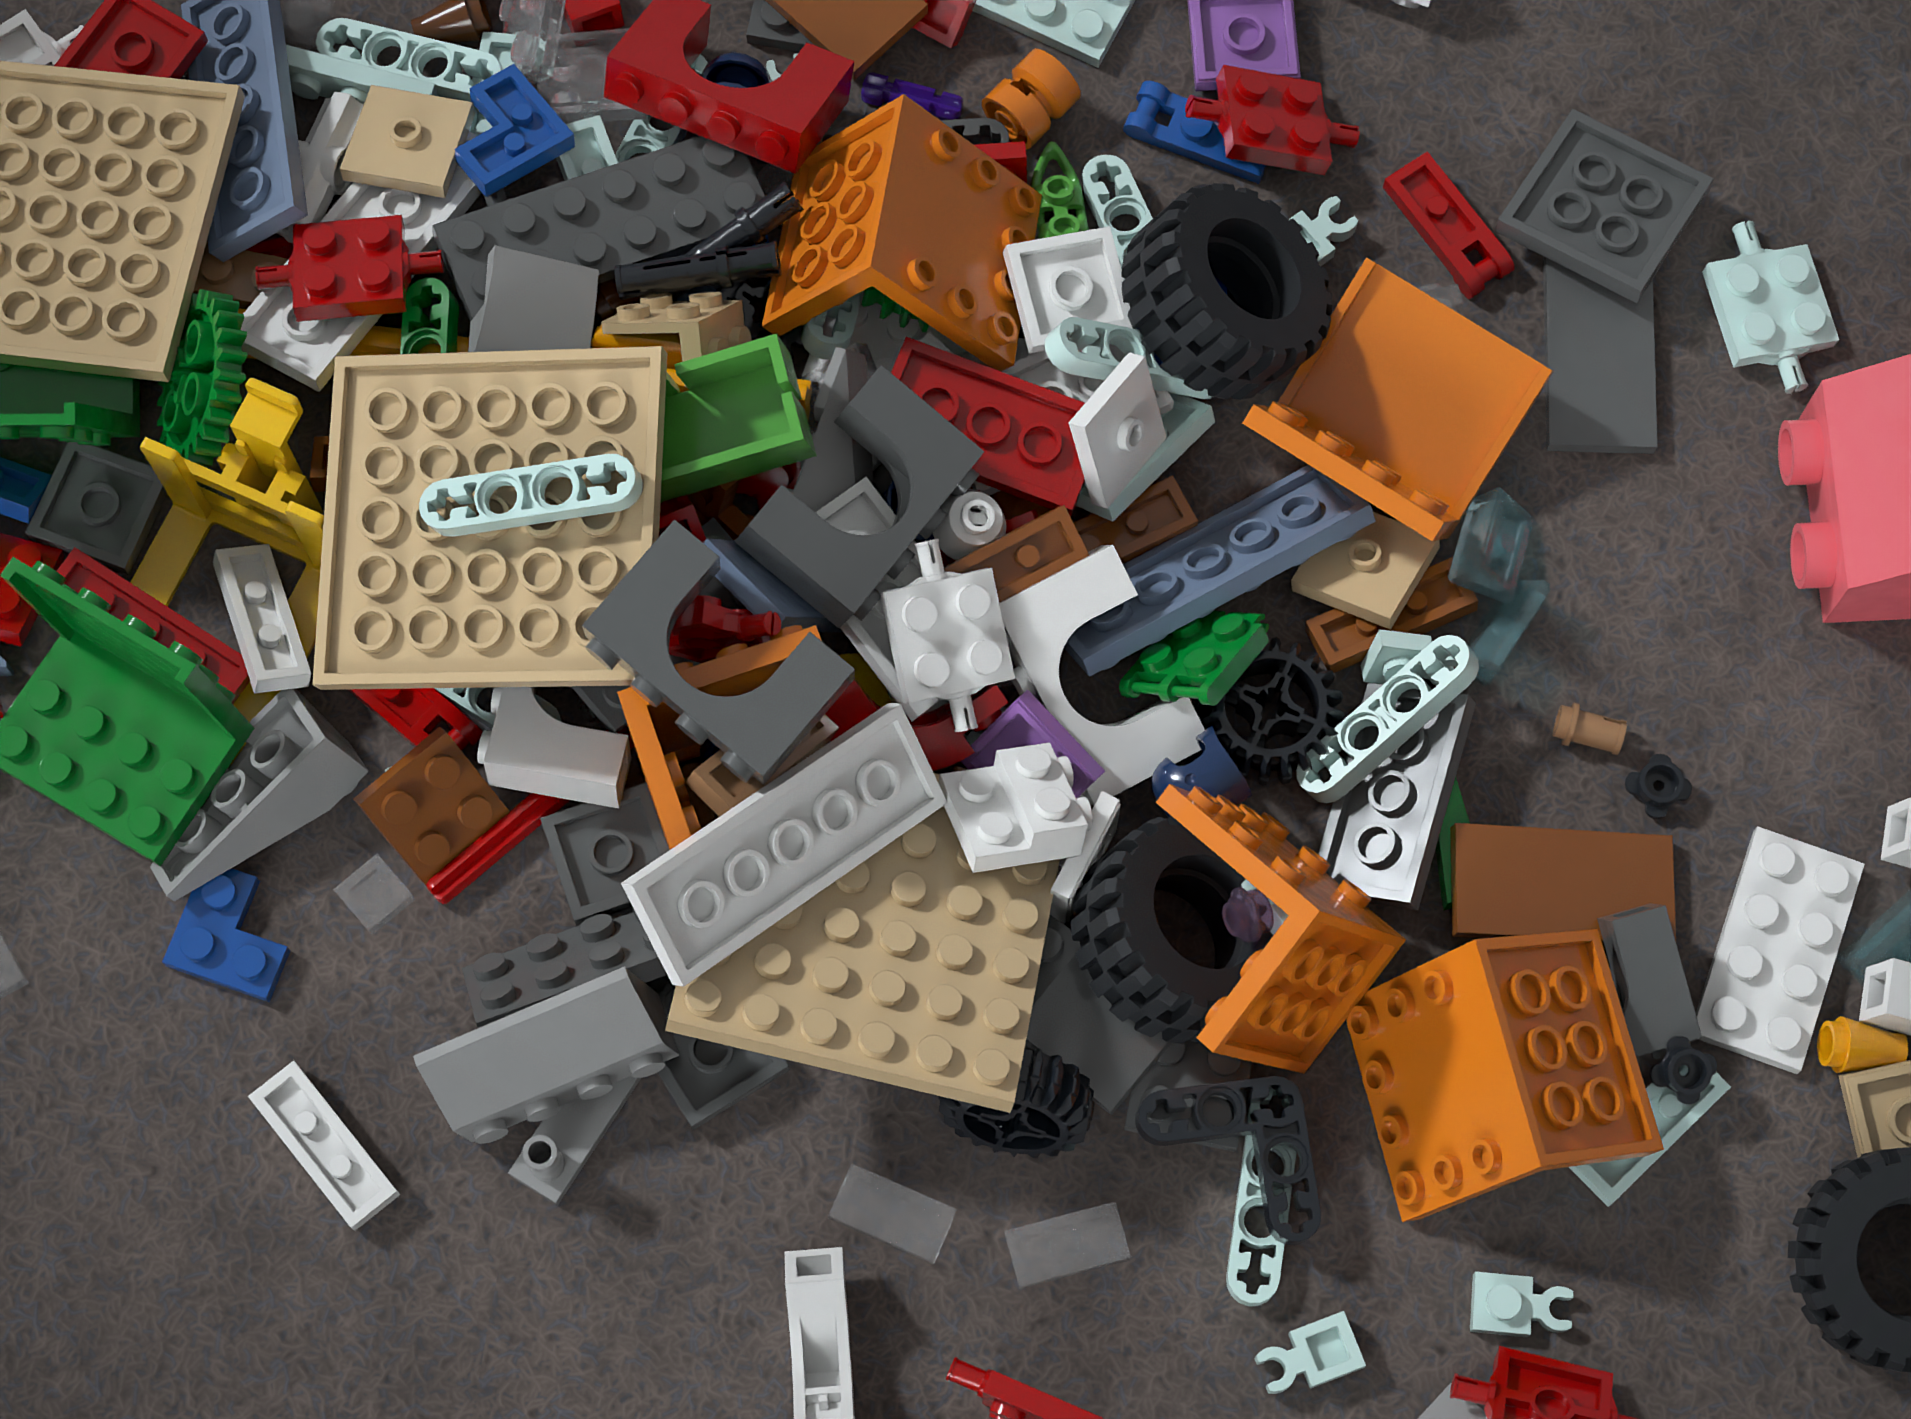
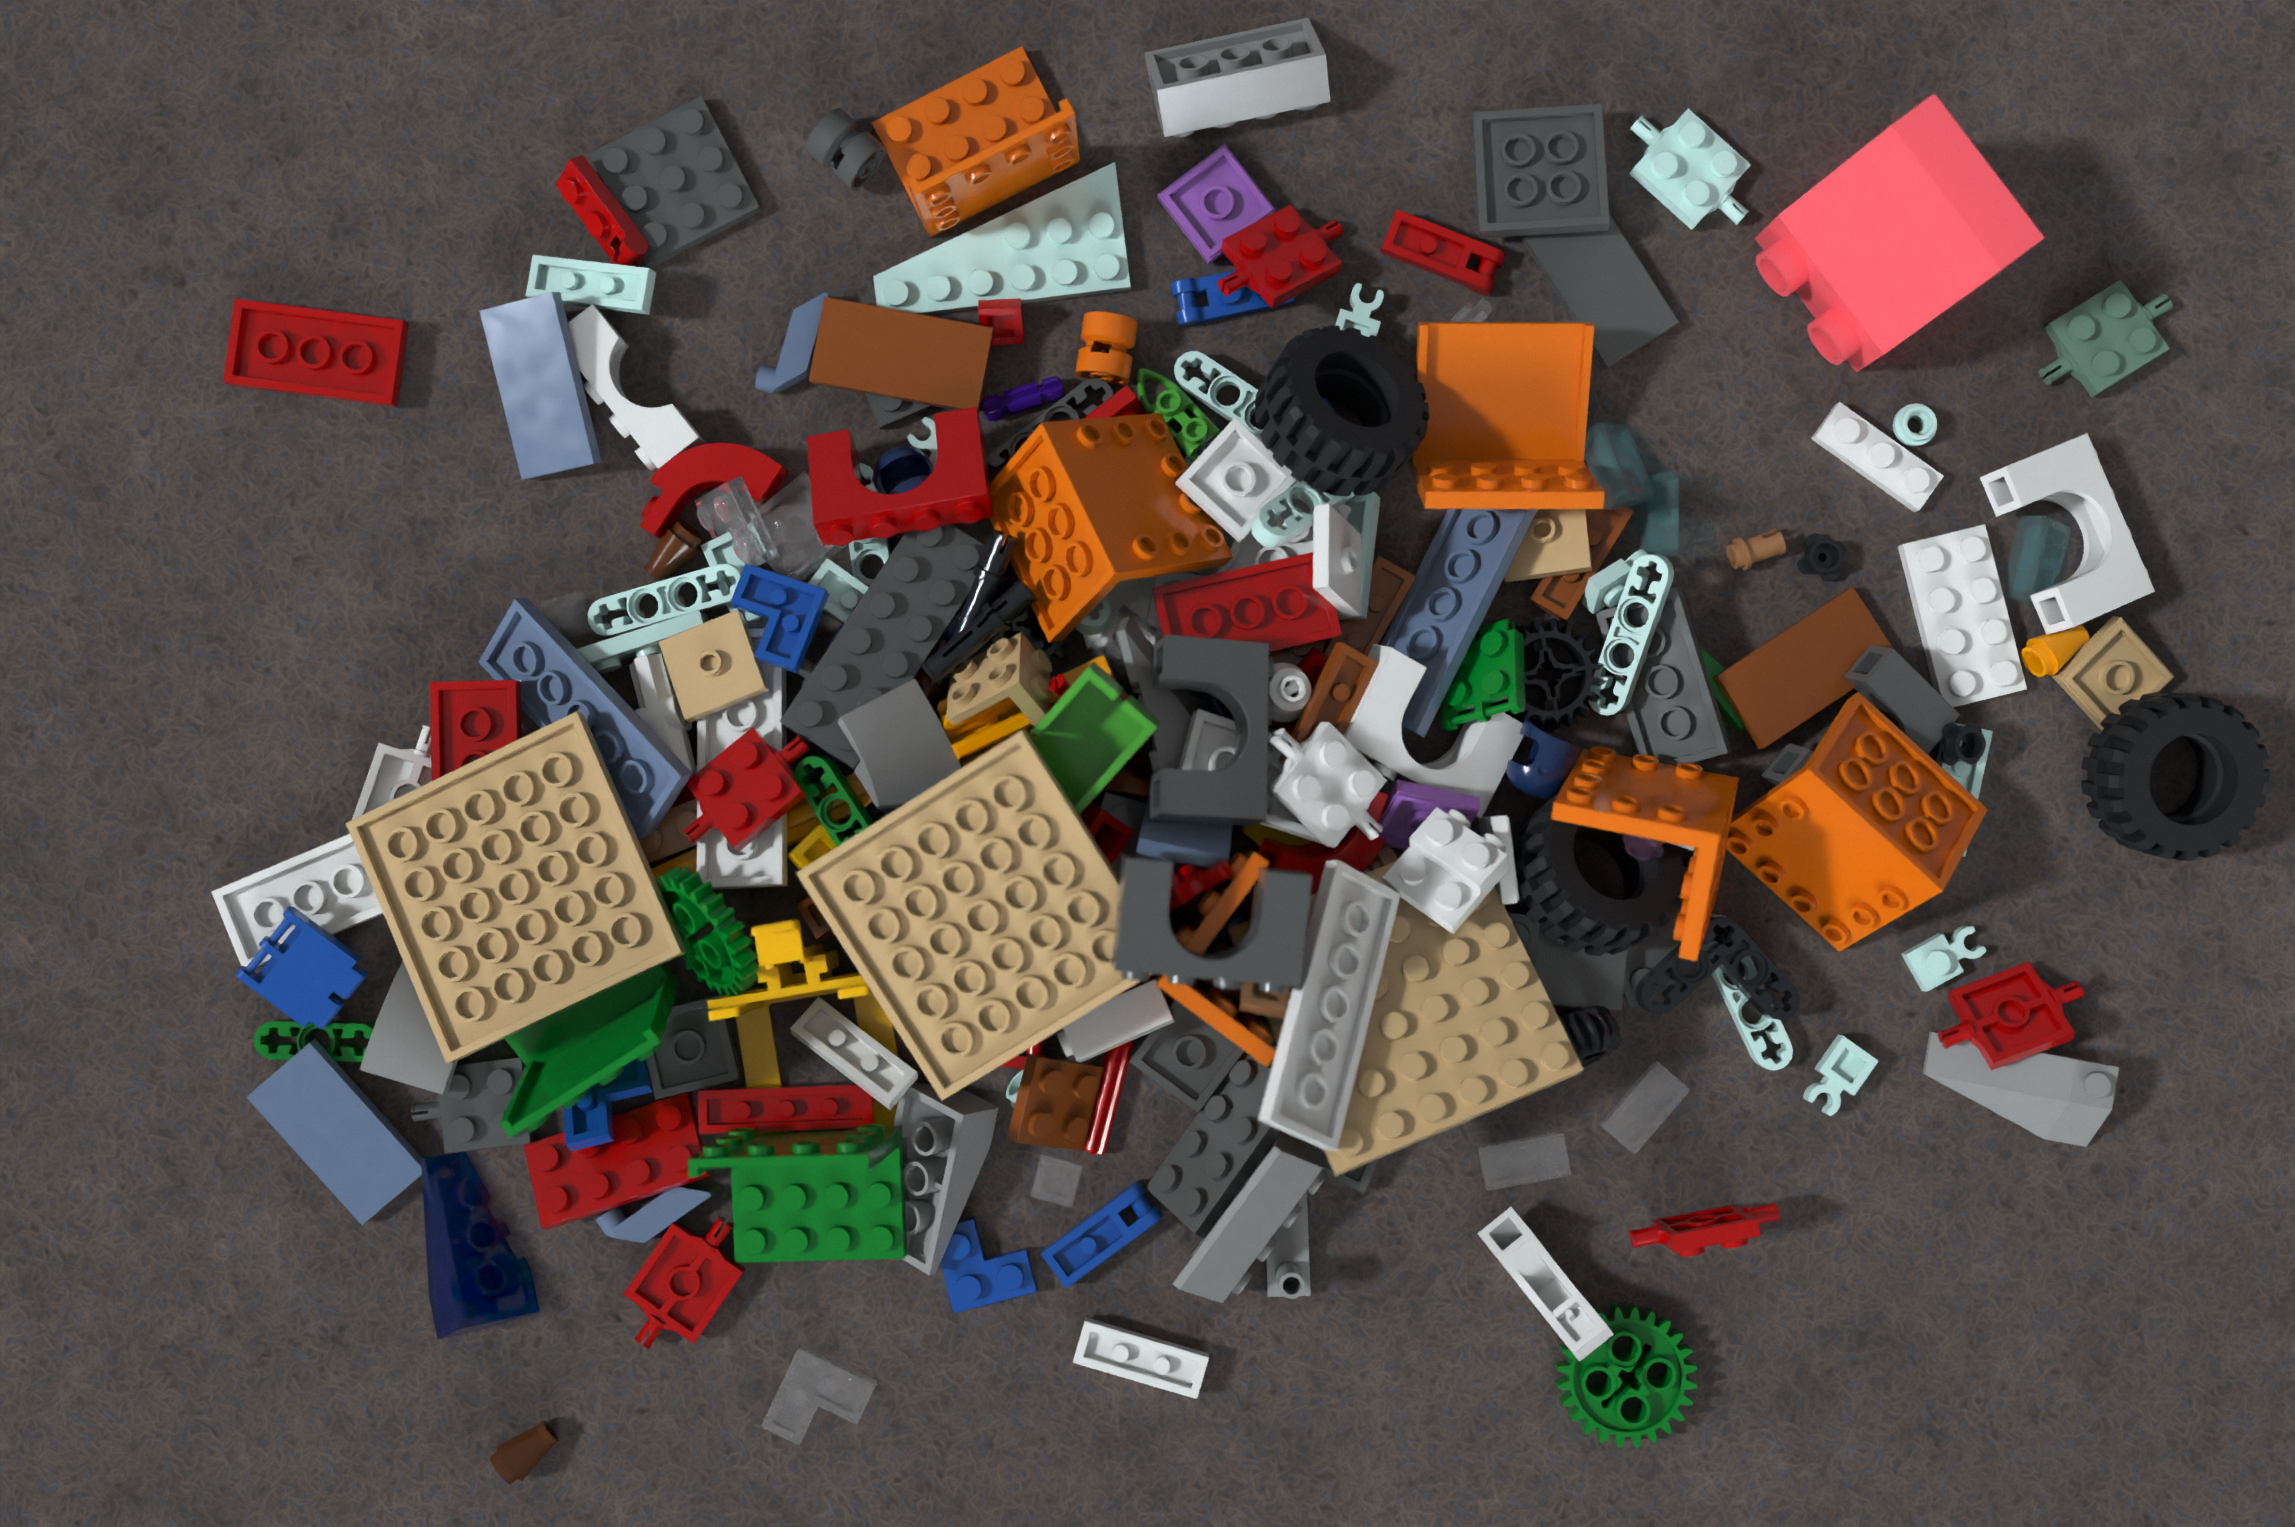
camera: 30 degrees left, 15 degrees up
(377, 984) = (1100, 1235): none -> blue plate
(530, 488) = (1006, 892): light aqua beam -> none
(1788, 721) = (1877, 457): none -> white plate
(1863, 702) = (1924, 416): none -> light aqua plate

